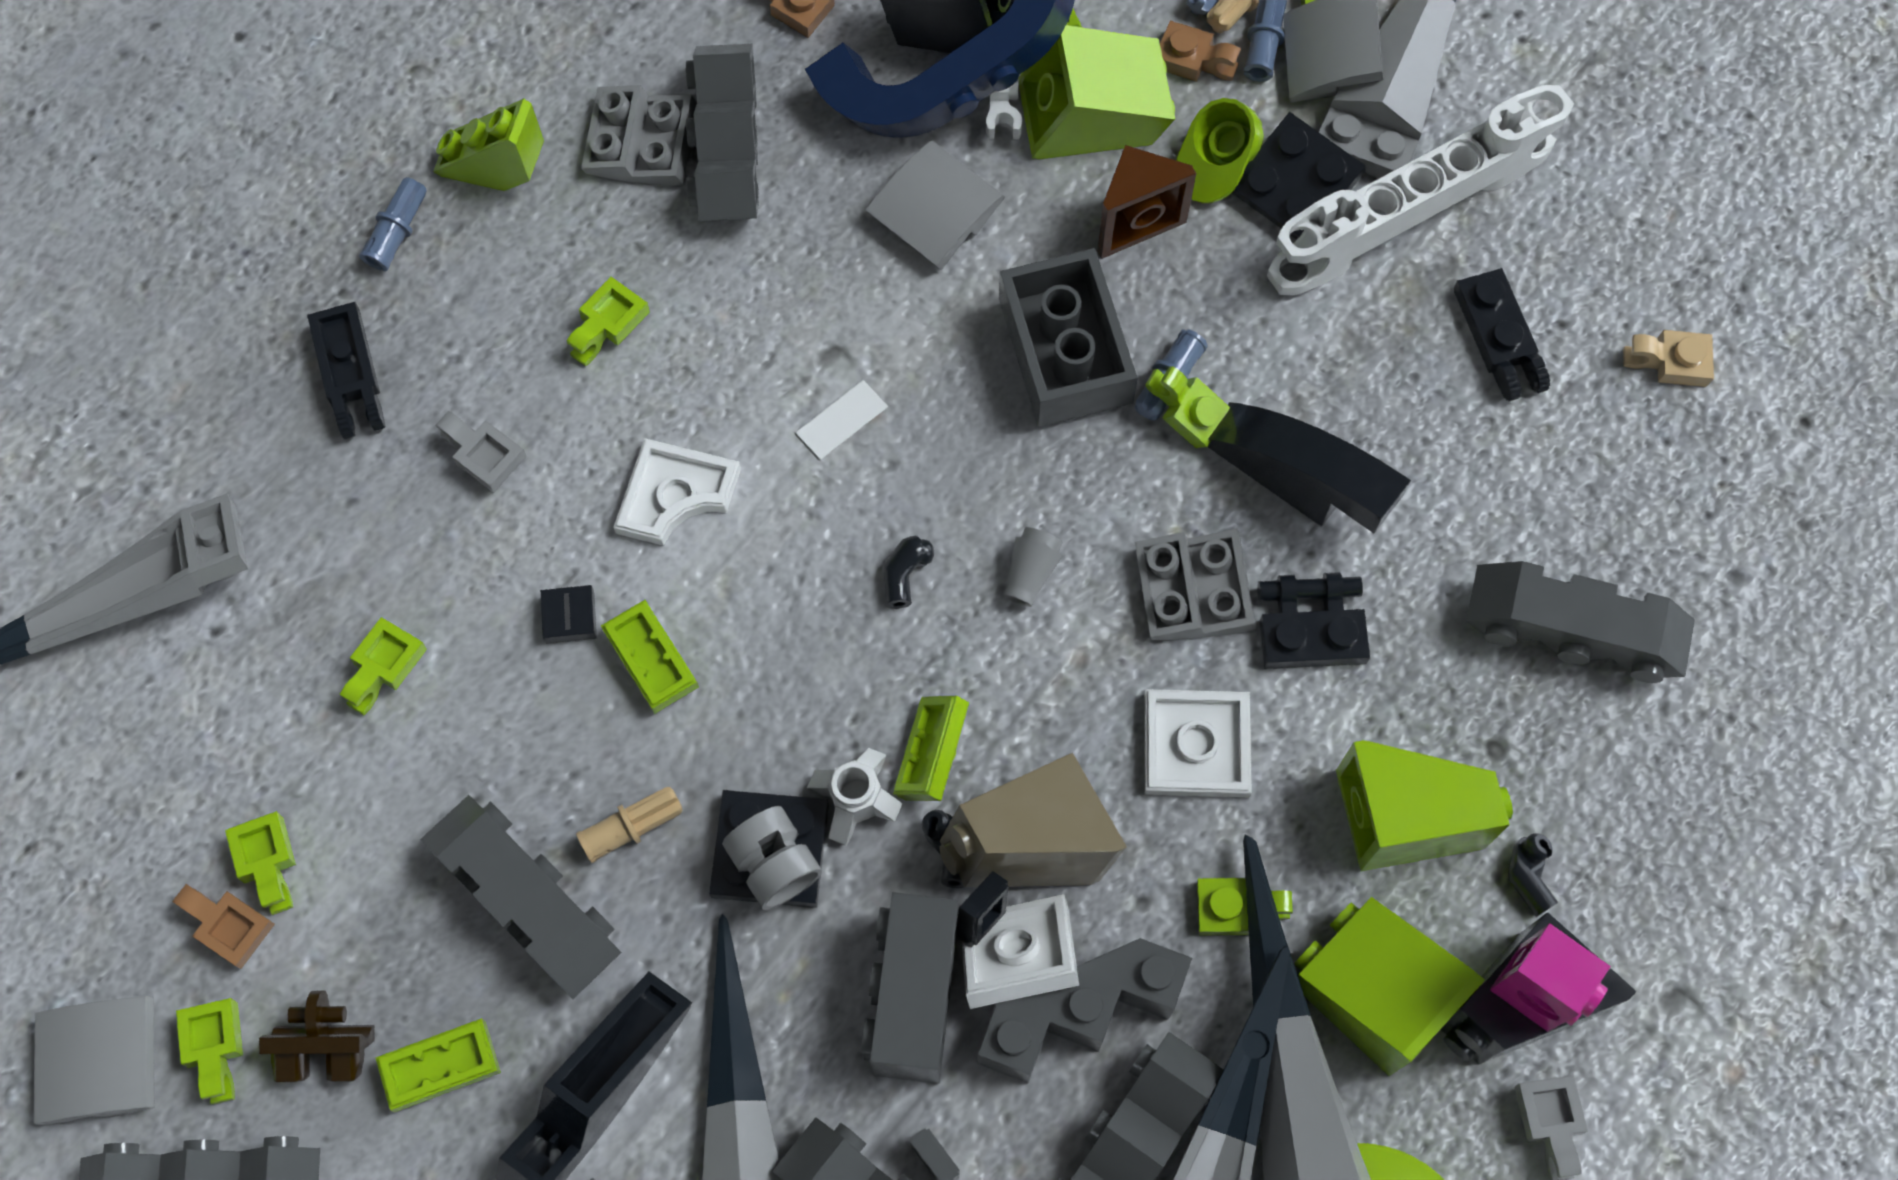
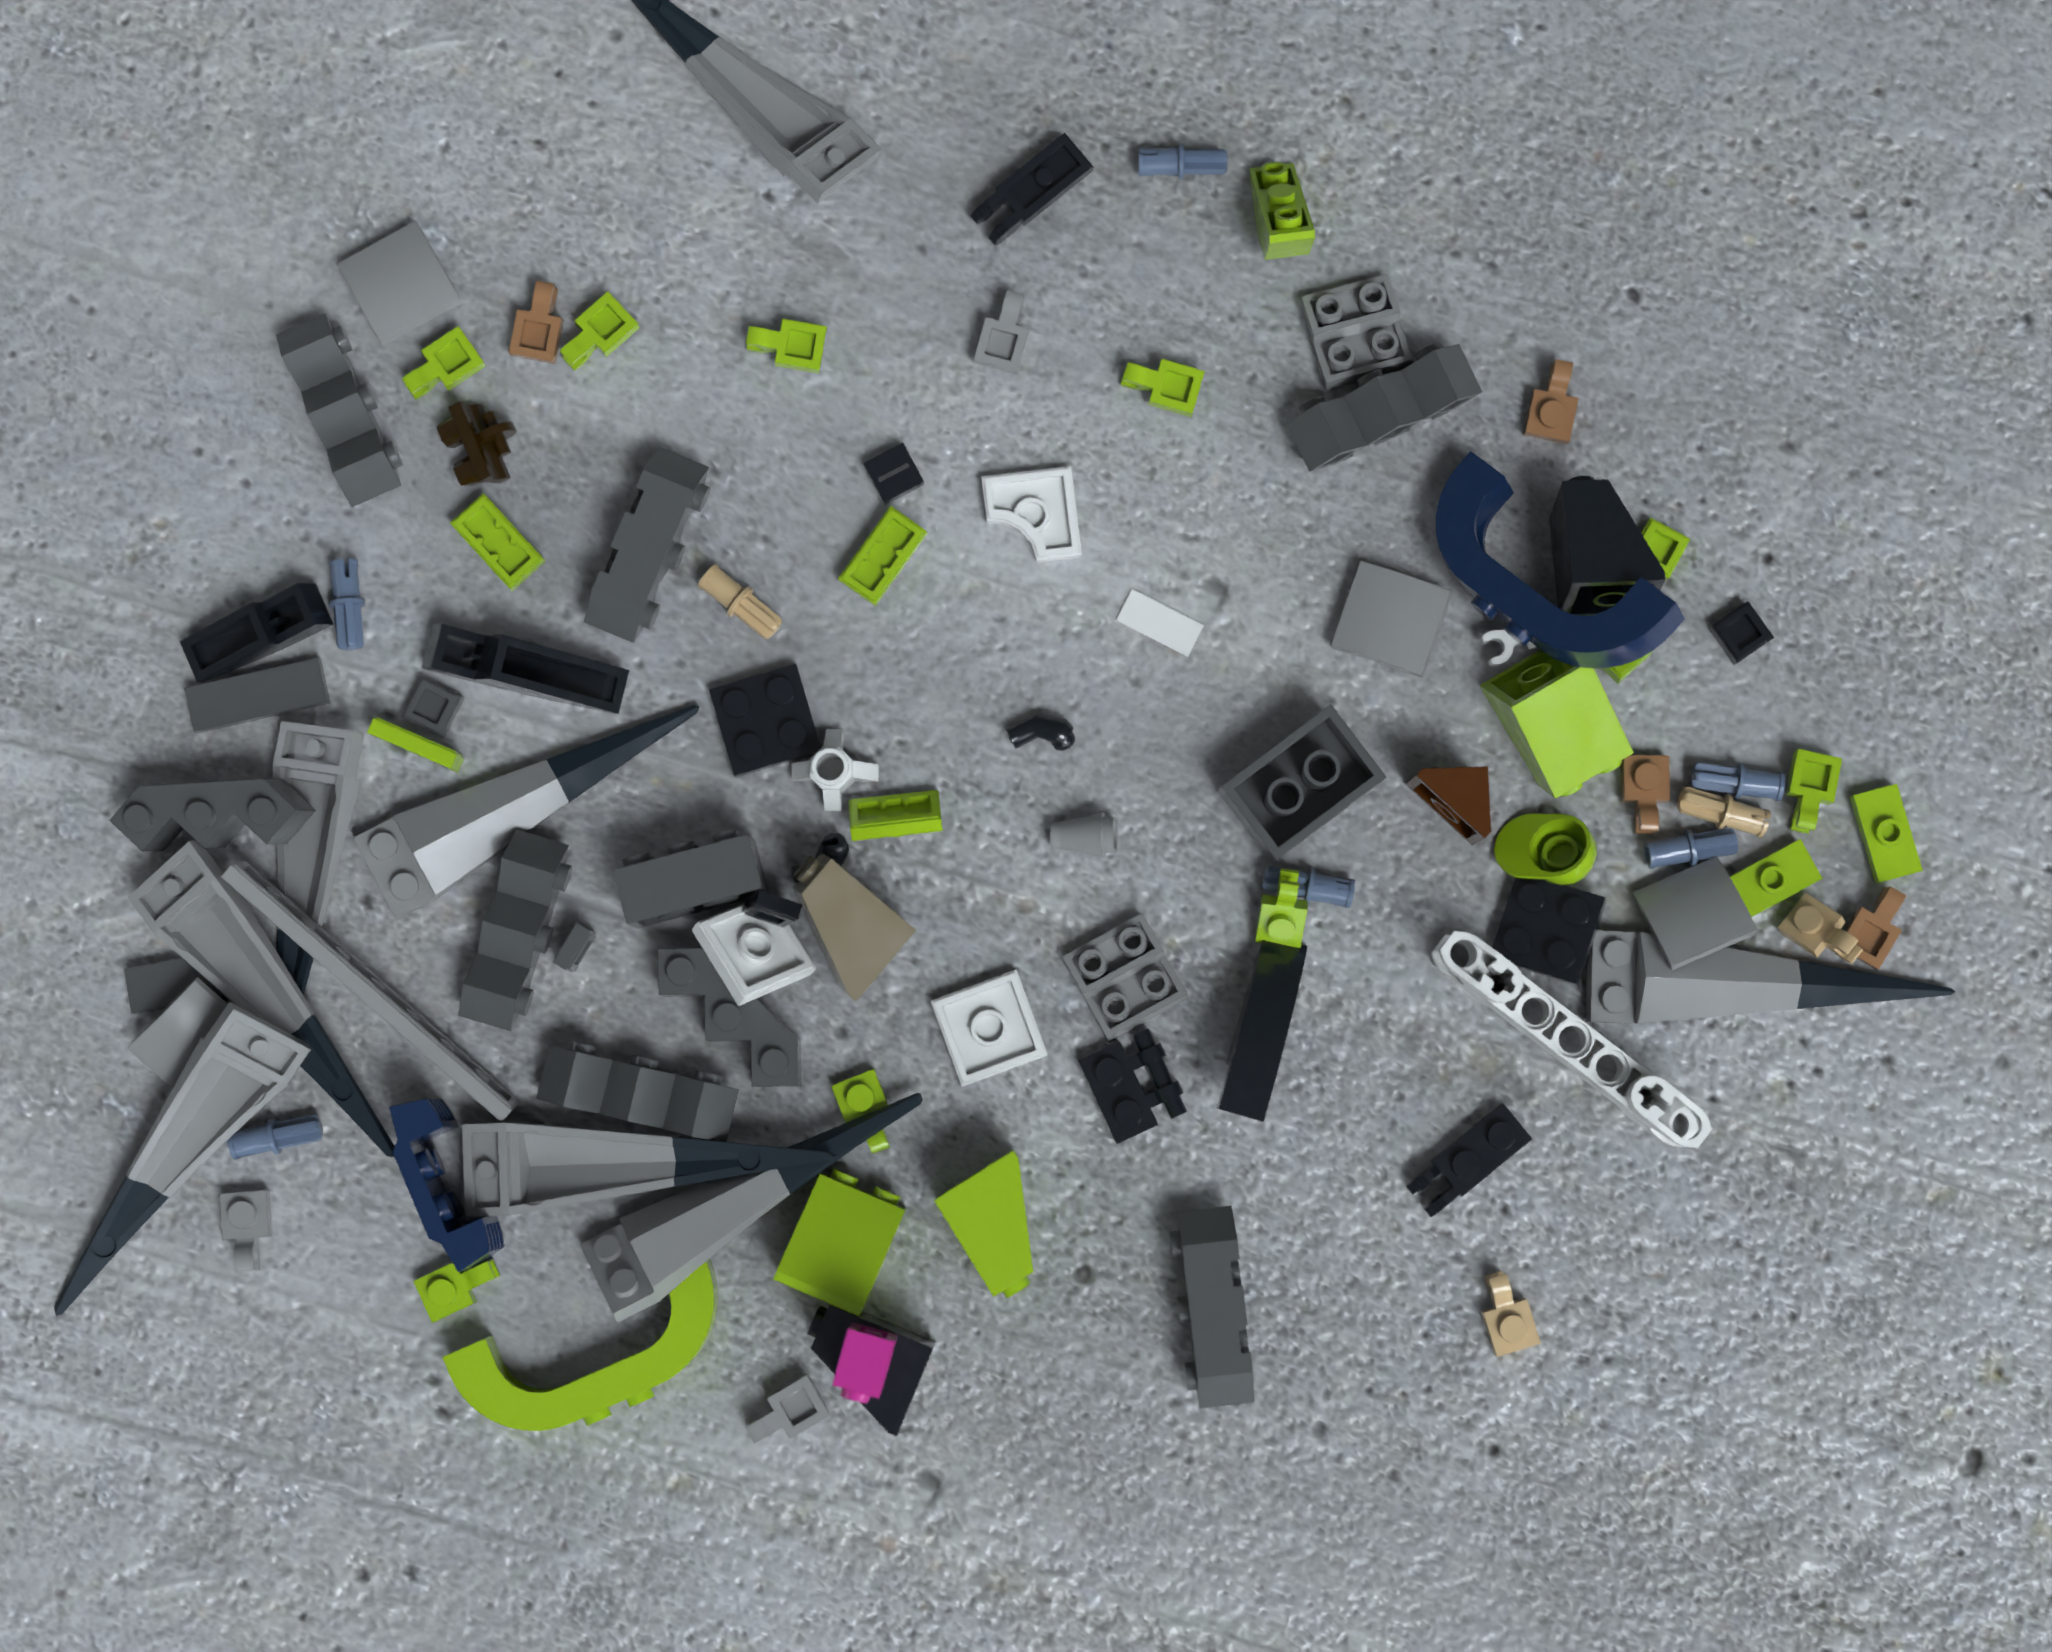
camera: 65 degrees right, 15 degrees up
(785, 871) = (737, 741): light grey wheel -> none
(1527, 869) = (985, 1330): black arm -> none

